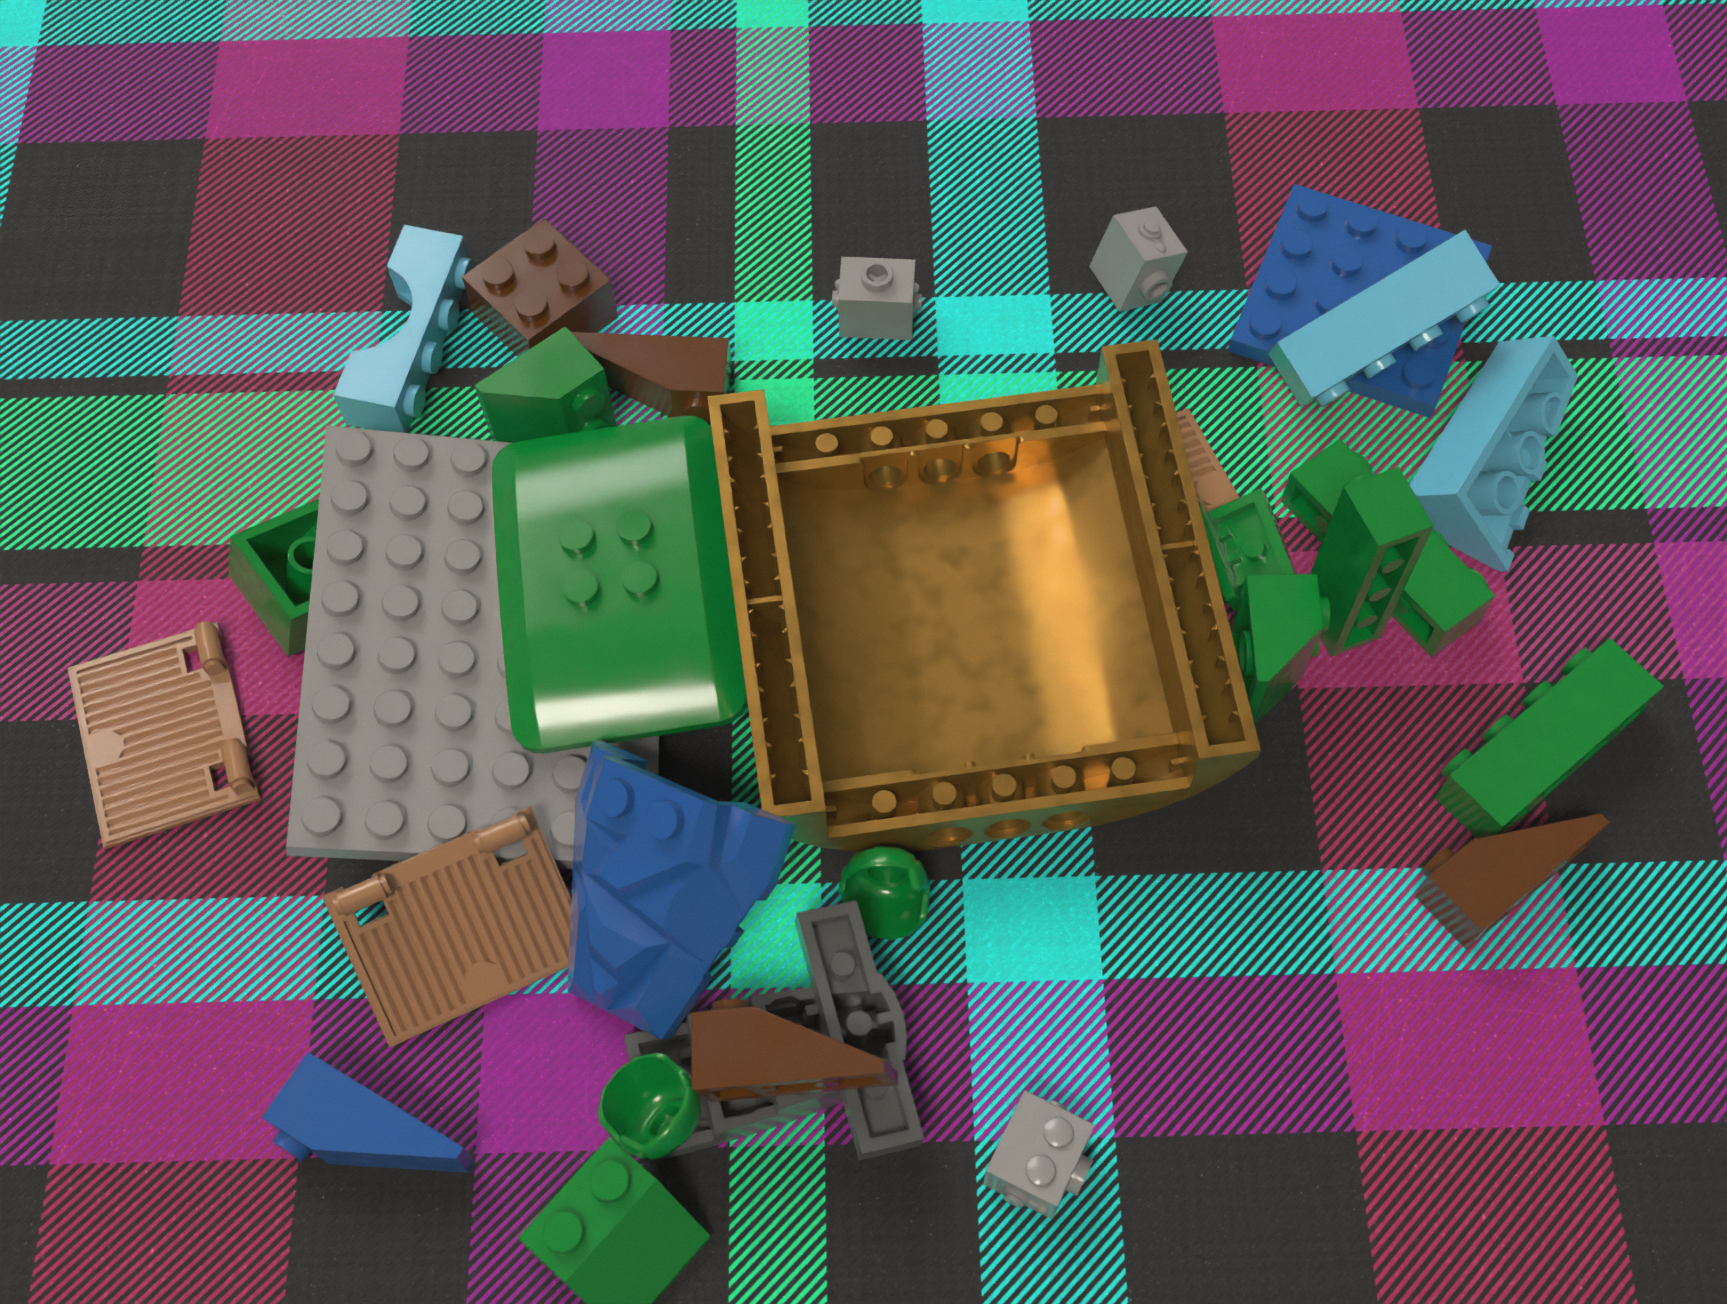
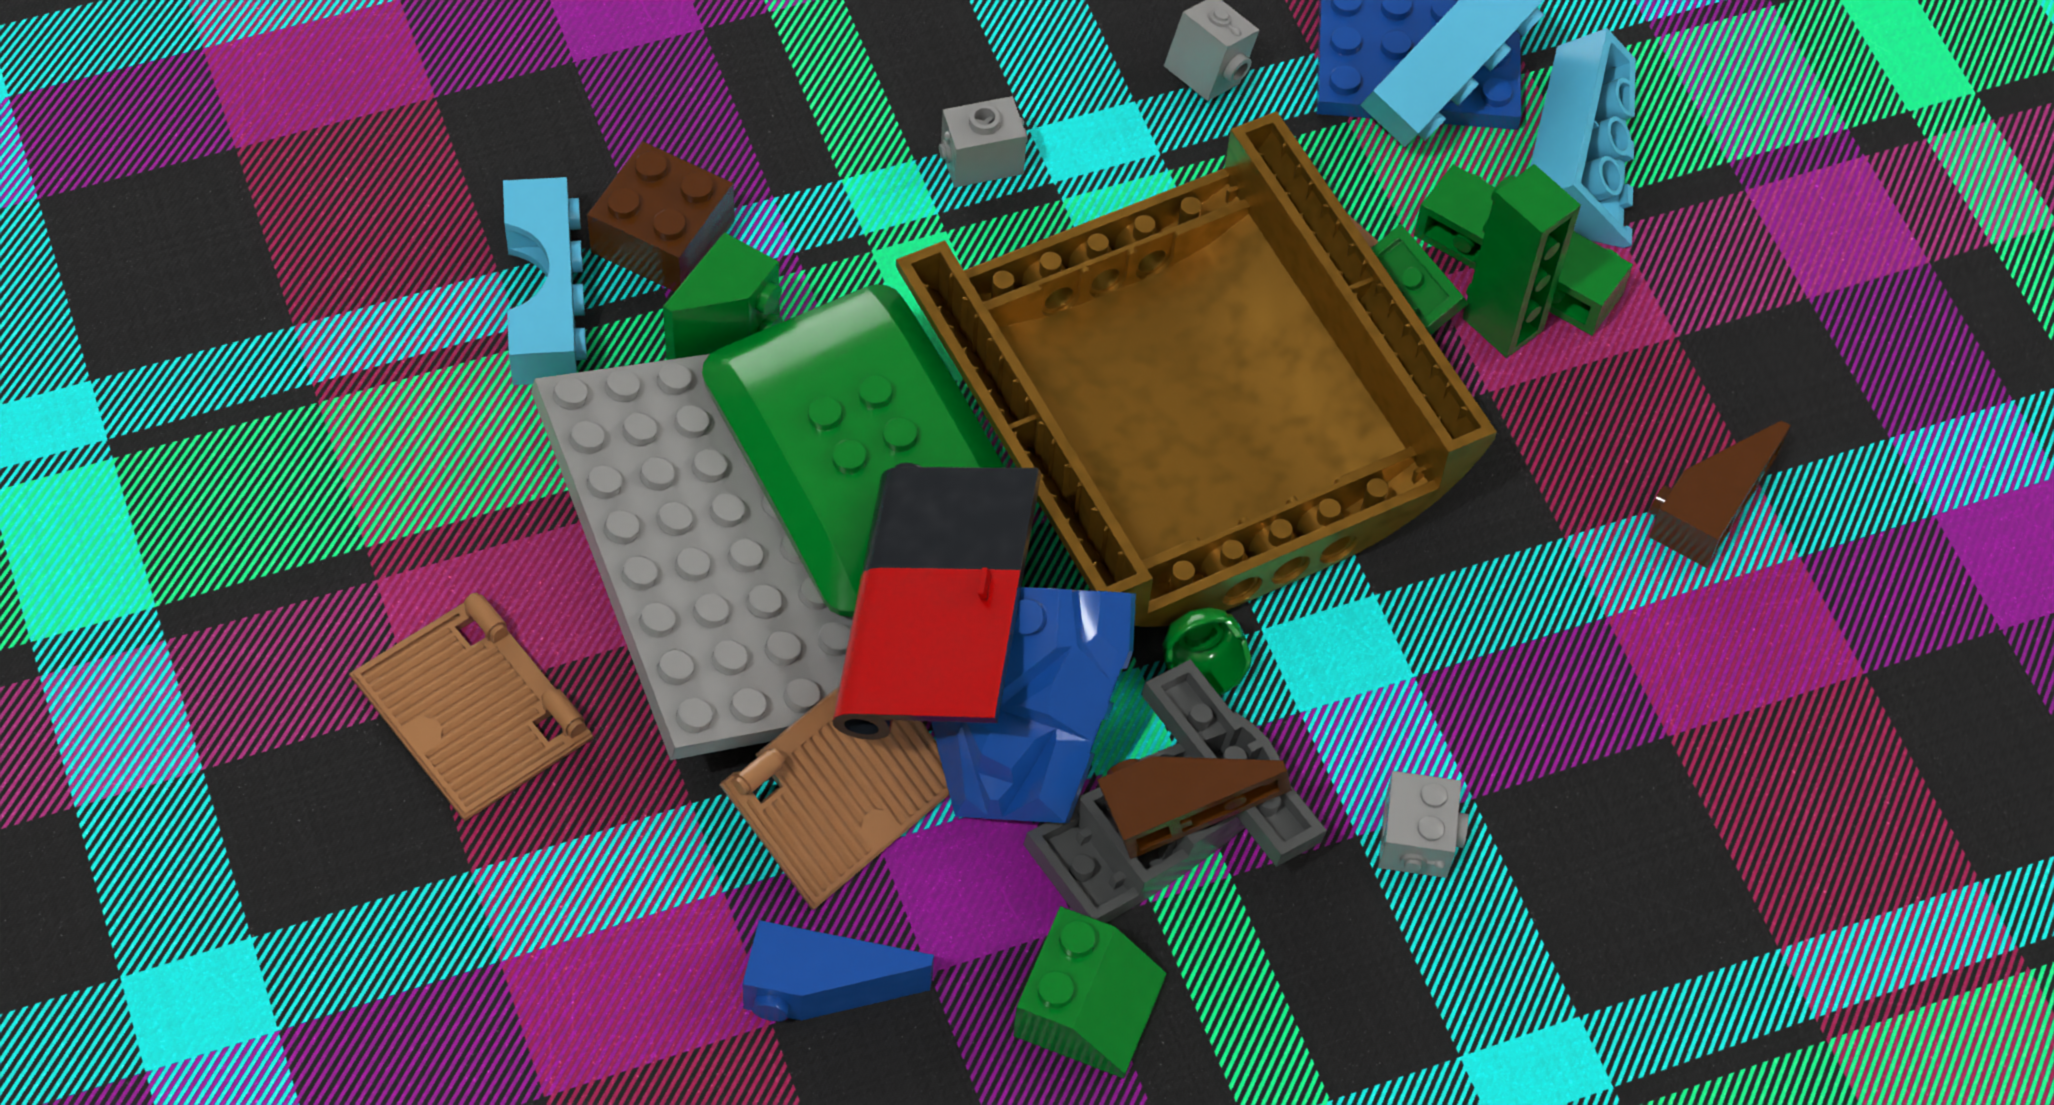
camera: 25 degrees left, 5 degrees down
(275, 572) = (537, 531): green slope -> none
(588, 770) = (937, 597): none -> door
(649, 1106) = (1086, 870): green hair -> none
(663, 370) = (822, 255): reddish brown slope -> none
(1277, 634) = (1467, 330): green slope -> none
(1547, 741) = (1716, 376): green brick -> none

